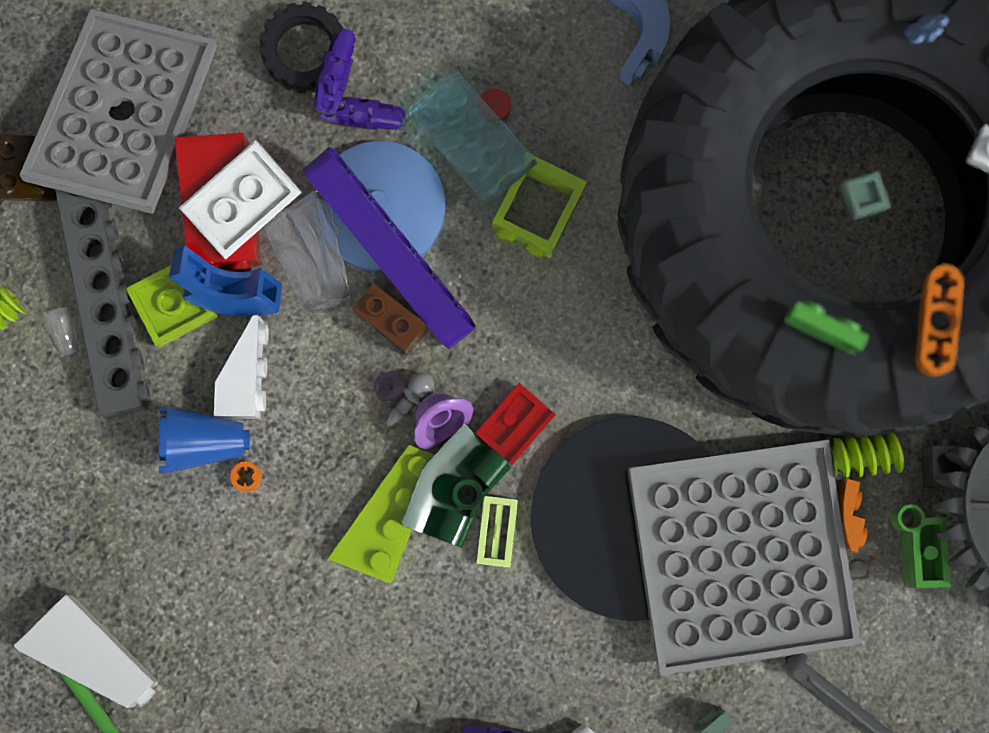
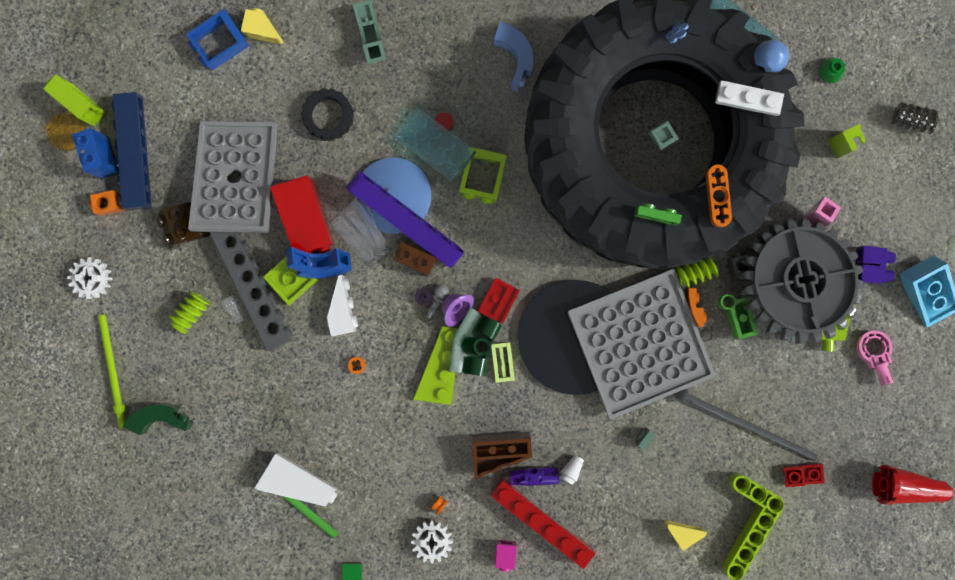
camera: 10 degrees left, 5 degrees up
(198, 439) = (325, 351): blue cone -> none
(240, 199) = (315, 213): white tile -> none
(334, 73) = (349, 126): dark purple hinge -> none
(367, 114) = (370, 145): dark purple hinge -> none
(453, 684) = (499, 450): none -> reddish brown wedge

